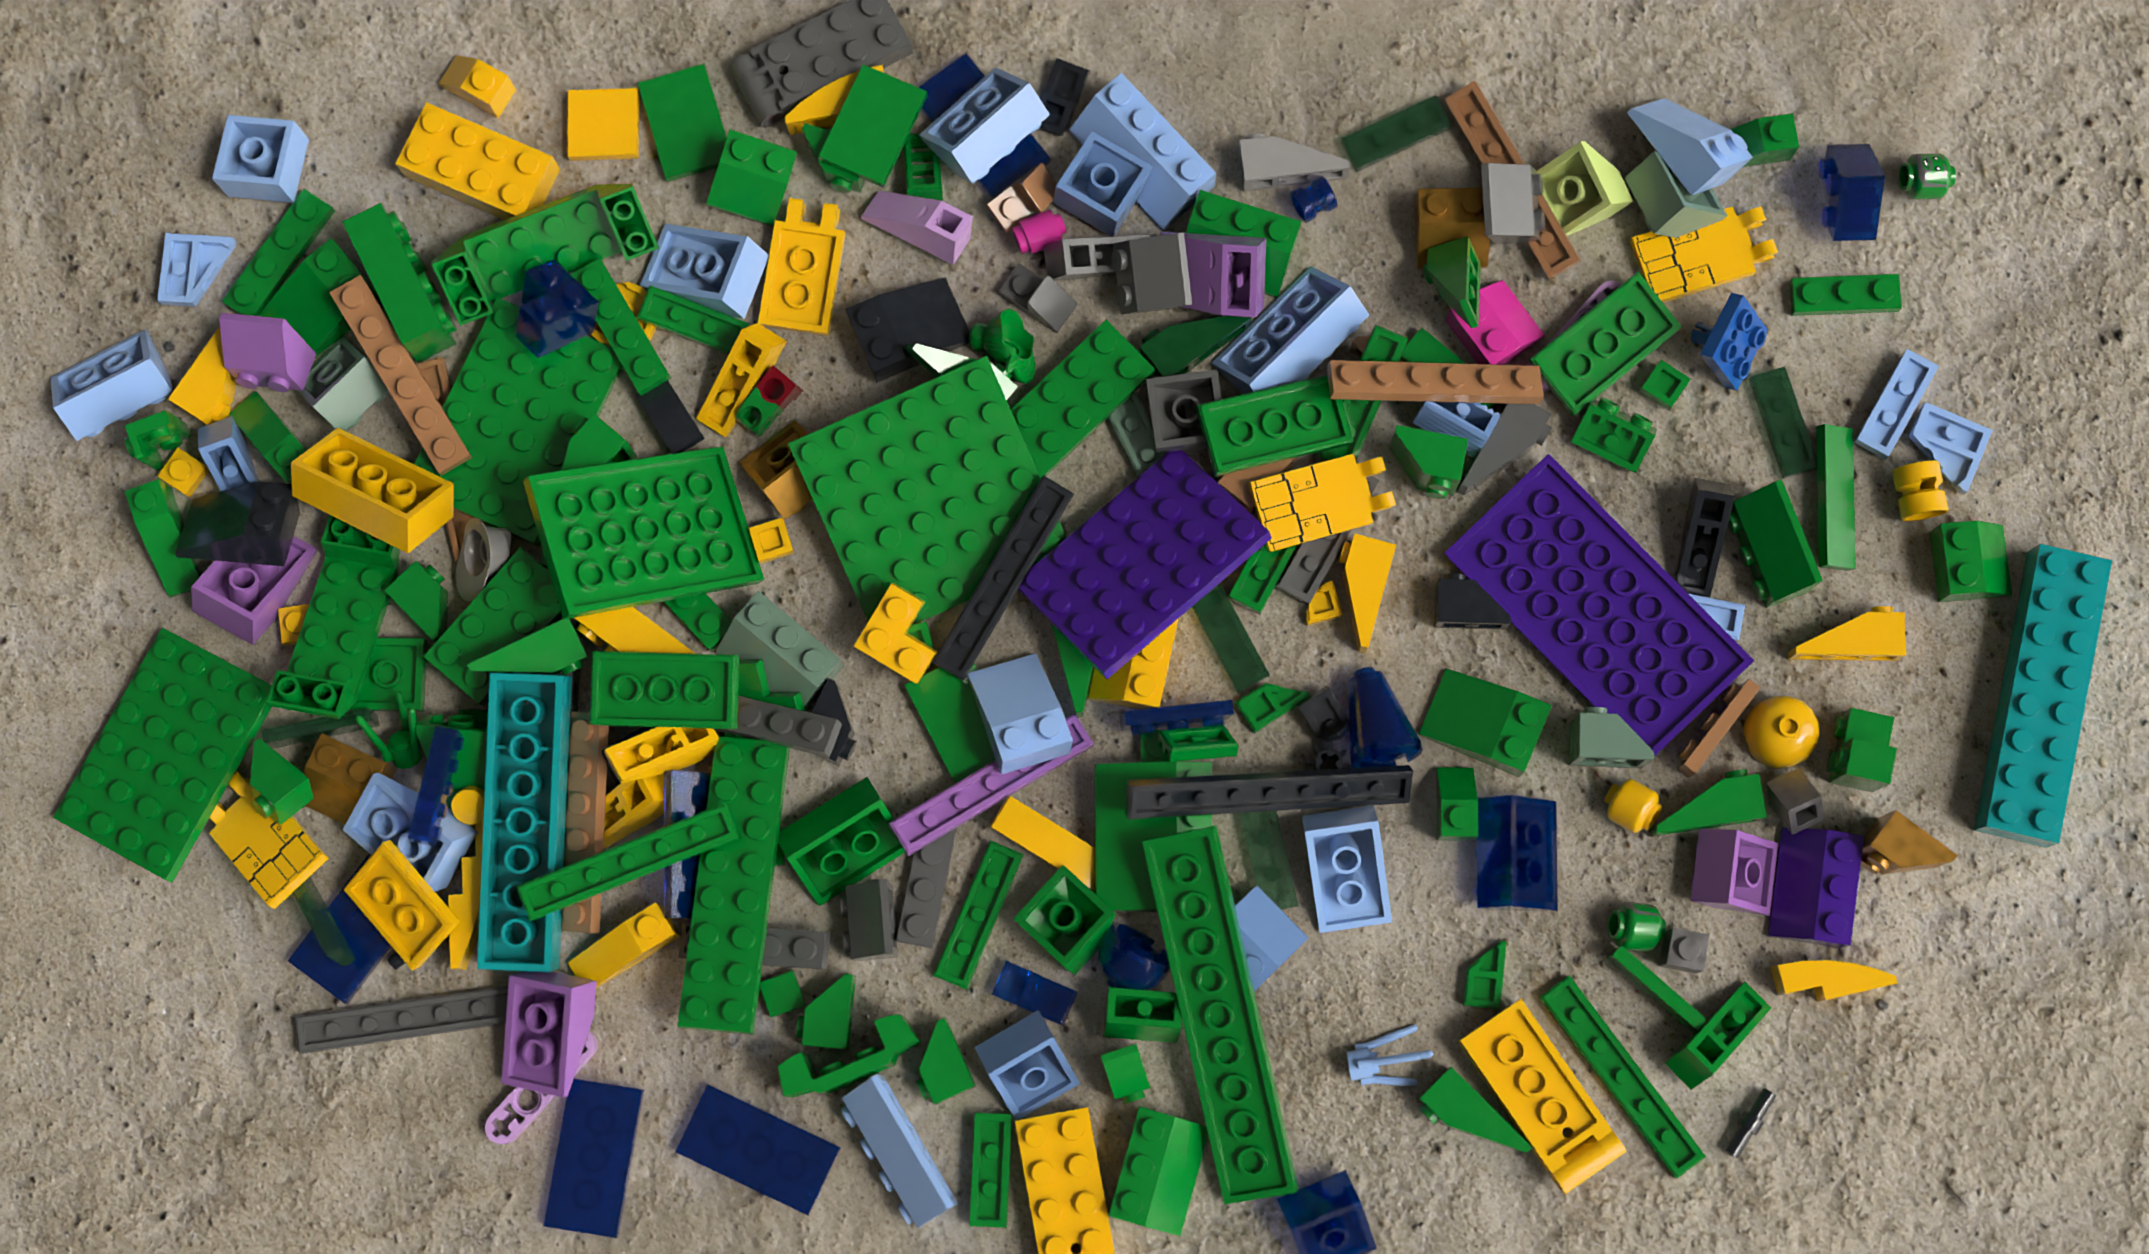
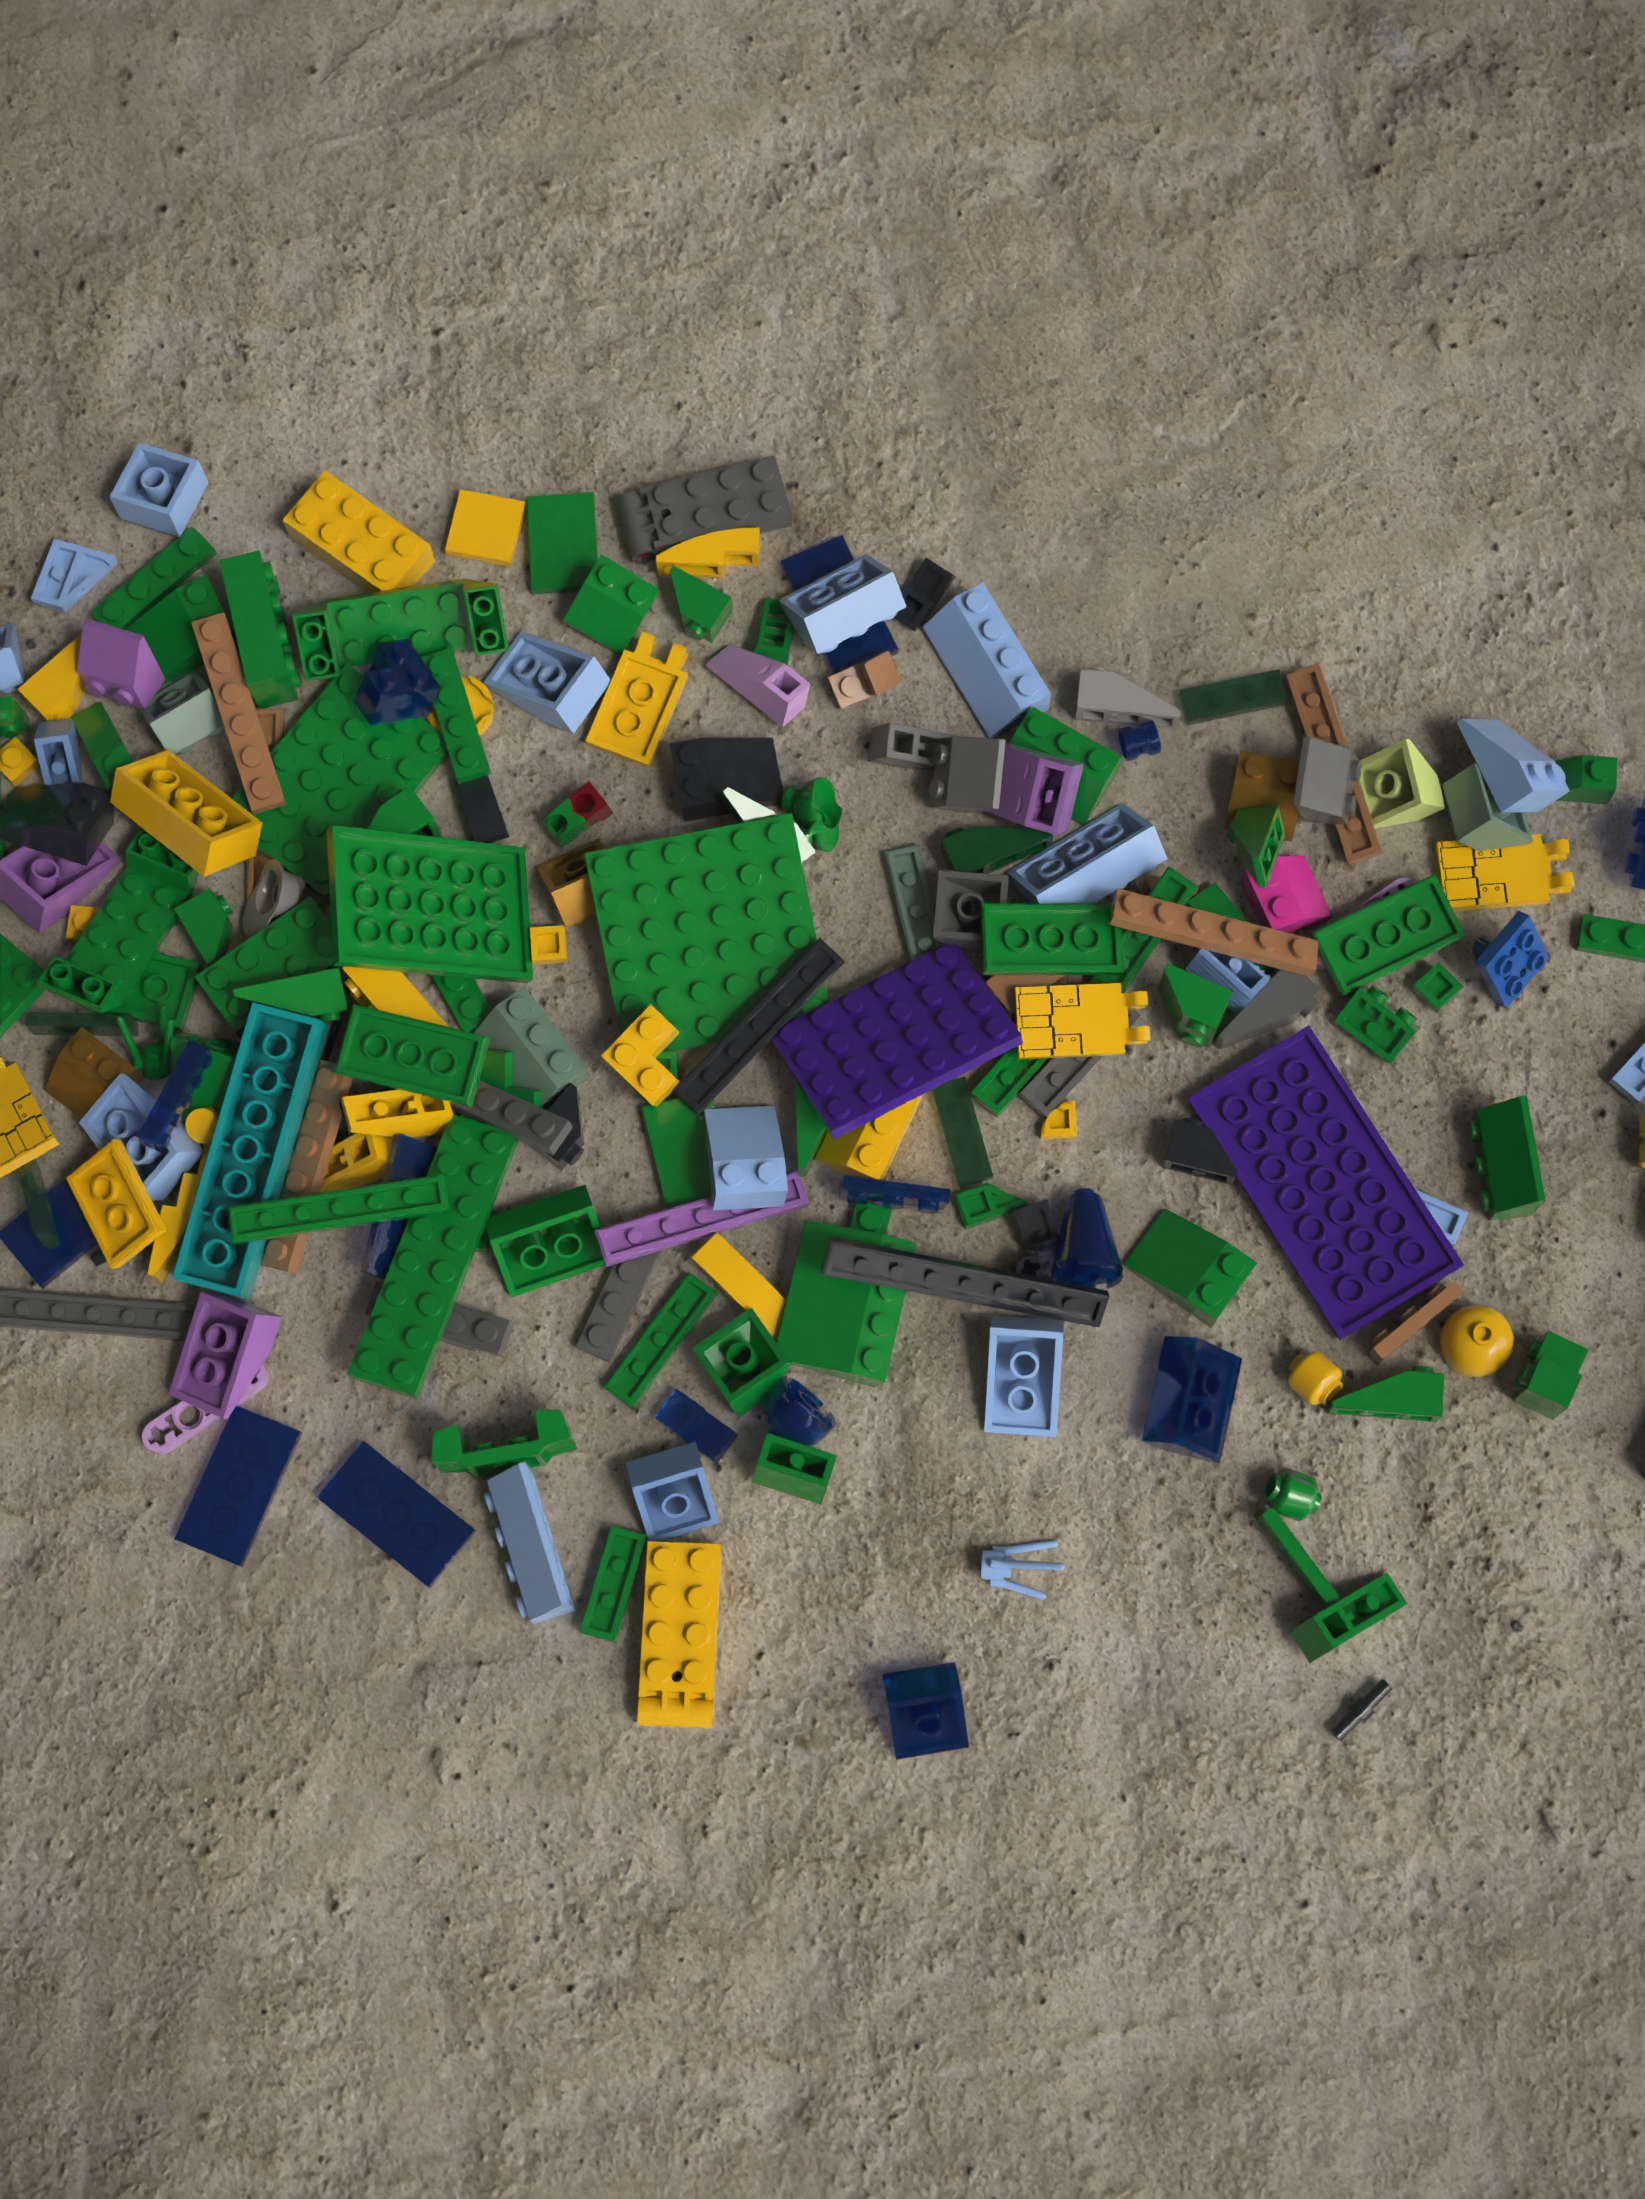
camera: 10 degrees right, 5 degrees down
(277, 784) = (28, 1065): green slope -> none
(478, 84) = (378, 466): yellow slope -> none
(625, 945) = (318, 1291): yellow slope -> none
(690, 320) = (525, 726): green tile -> none
(744, 368) = (563, 776): yellow slope -> none
(782, 994) = (455, 1372): green tile -> none
(829, 1016) = (495, 1402): green slope -> none
(870, 921) = (556, 1320): dark grey slope -> none
(873, 125) = (736, 581): green tile -> none
(943, 1067) = (592, 1475): green slope -> none
(1038, 231) = (870, 712): dark pink brick -> none
(1038, 297) = (856, 775): dark grey slope -> none
(1079, 395) = (872, 874): green plate -> none
(1102, 184) = (940, 682): medium blue slope -> none
(1126, 1073) = (764, 1519): green slope -> none
(1159, 1171) = (775, 1622): green slope -> none
(1197, 743) = (907, 1223): green tile -> none
(1220, 1015) = (868, 1484): green plate -> none
(1266, 935) = (919, 1421): medium blue slope -> none
(1269, 857) = (951, 1351): clear green tile -> none
(1365, 577) = (1107, 1102): yellow slope -> none
(1456, 804) = (1144, 1339): green slope -> none
(1463, 1109) = (1085, 1633): green slope -> none
(1485, 979) = (1134, 1513): green tile -> none
(1542, 1096) = (1162, 1635): yellow hinge -> none
(1605, 741) = (1302, 1310): sand green slope -> none
(1622, 1077) = (1246, 1637): green tile -> none
(1684, 950) = (1333, 1527): flat silver brick -> none
(1703, 535) = (1442, 1138): black slope -> none
(1734, 871) = (1400, 1463): medium lavender slope -> none
(1783, 422) = (1545, 1048): clear green tile -> none
(1795, 801) = (1474, 1408): flat silver brick -> none
(1816, 887) = (1476, 1496): dark purple slope -> none
(1828, 978) = (1470, 1587): yellow slope -> none
(1835, 497) = (1579, 1130): tile -> none
(1868, 637) = (1577, 1269): yellow slope -> none
(1900, 845) = (1568, 1476): pearl gold slope -> none

